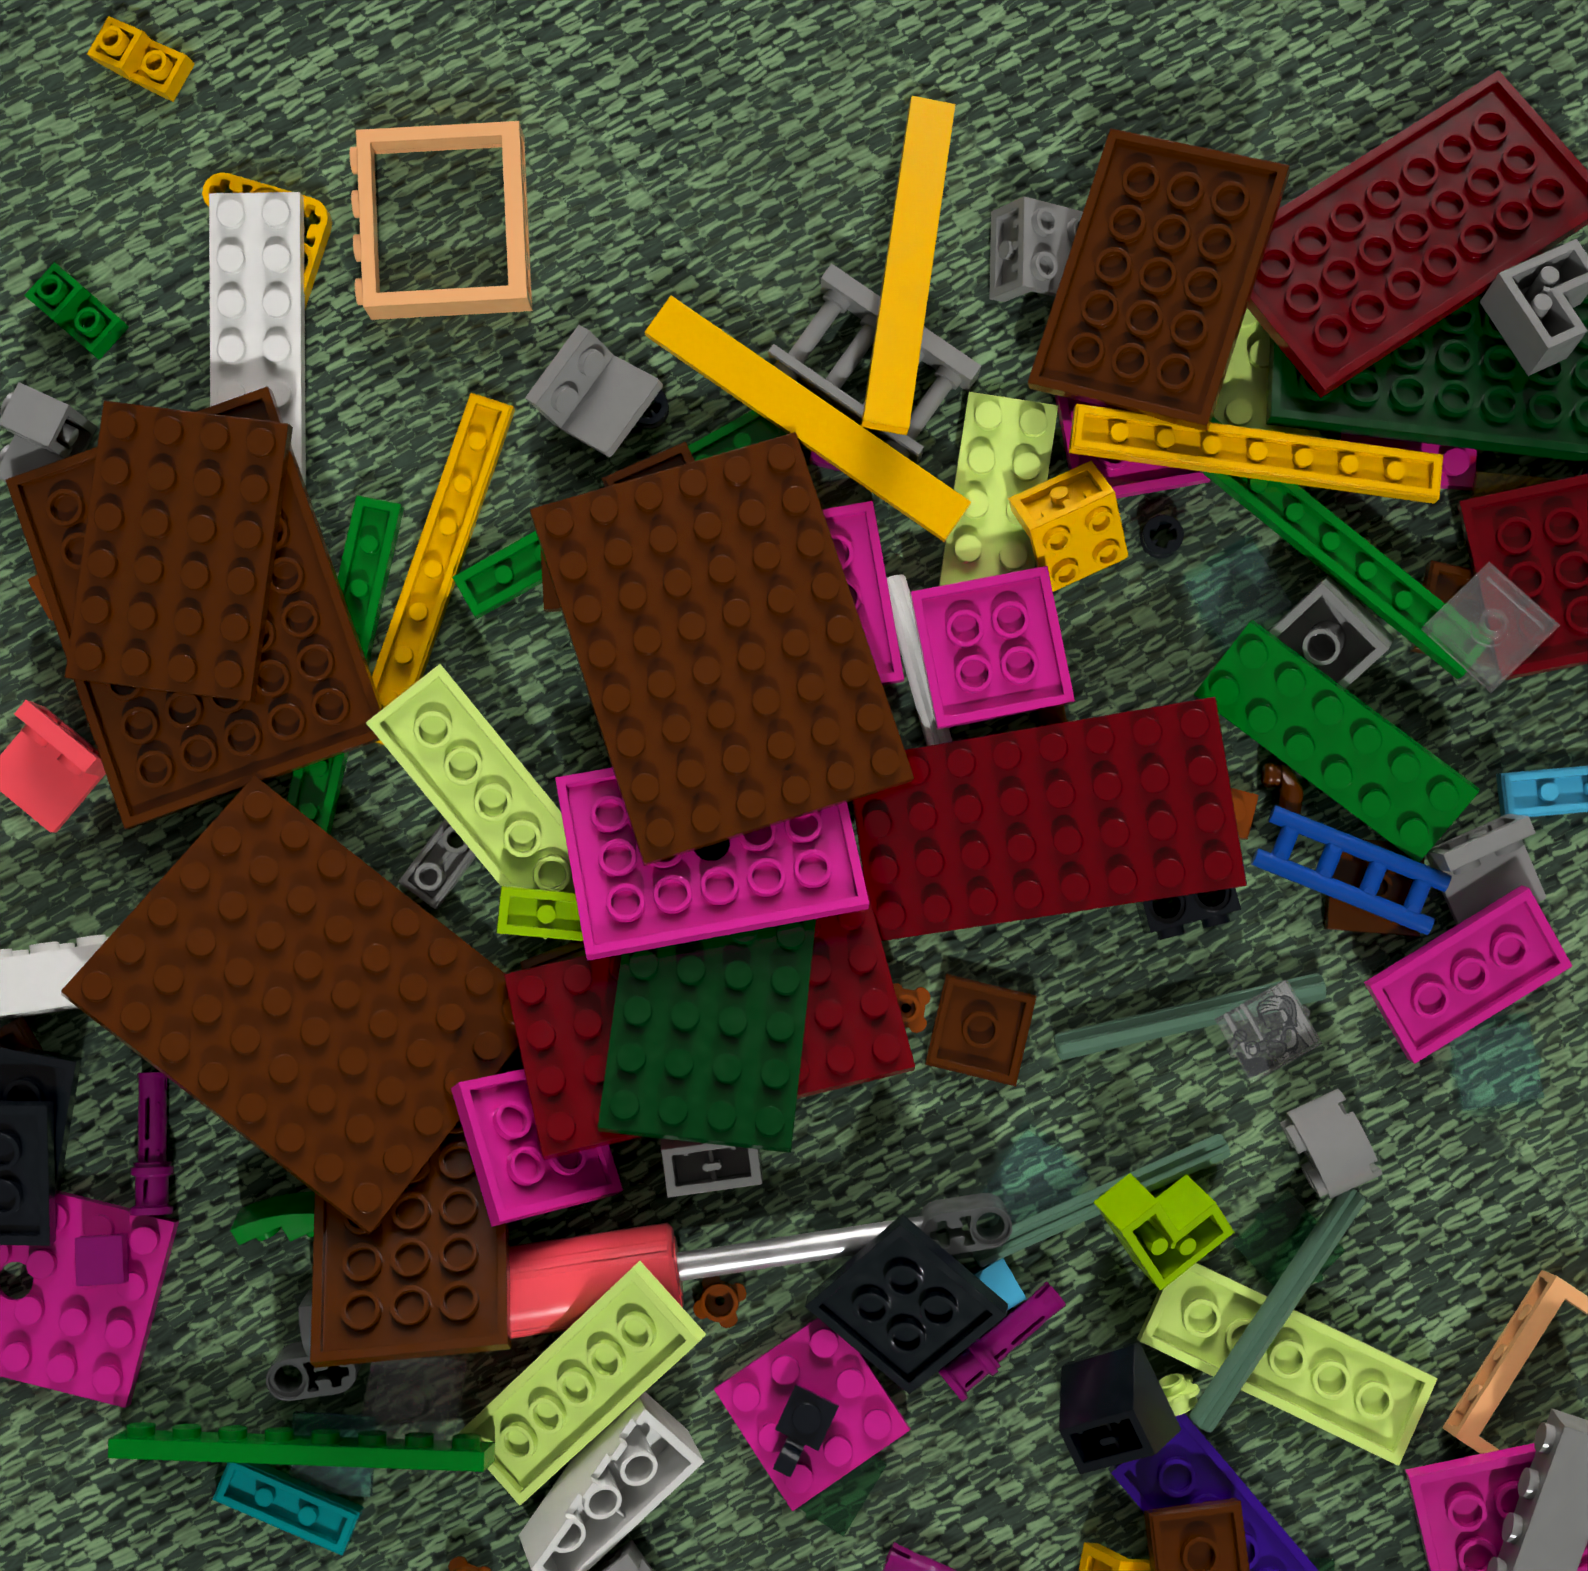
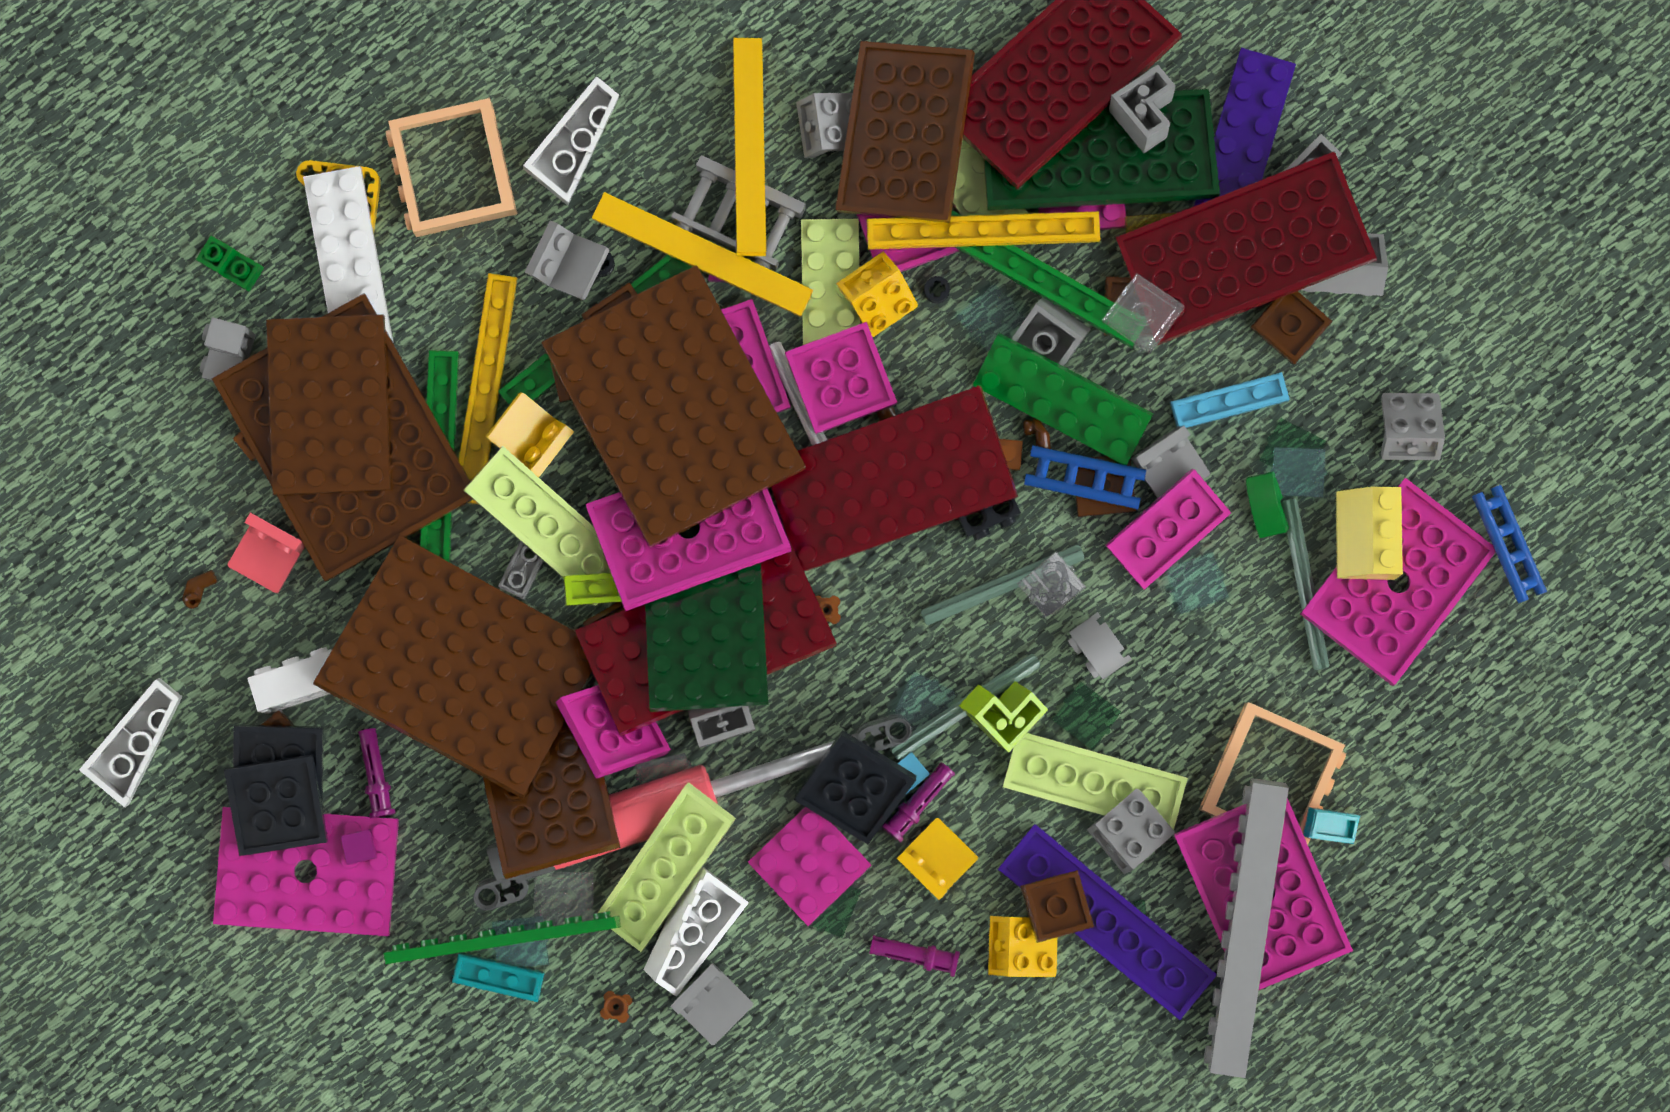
camera: 10 degrees left, 0 degrees up
(140, 59) = (240, 95): yellow slope -> none
(266, 1217) = (453, 806): green slope -> none
(488, 652) = (529, 433): none -> yellow bracket
(603, 1219) = (661, 767): none -> clear piece
(632, 213) = (569, 146): none -> white wedge
(708, 1308) = (749, 804): dark orange plate -> none
(805, 1423) = (805, 869): black plate -> none
(980, 1030) = (874, 615): reddish brown tile -> none
(1013, 1438) = (937, 858): none -> yellow bracket
(1113, 1409) = (991, 827): black slope -> none
(1180, 1392) = (1030, 815): yellowish green plate -> none
(1276, 1309) = (1082, 751): sand green axle -> none
(1334, 1452) = (1131, 831): none -> light grey bracket

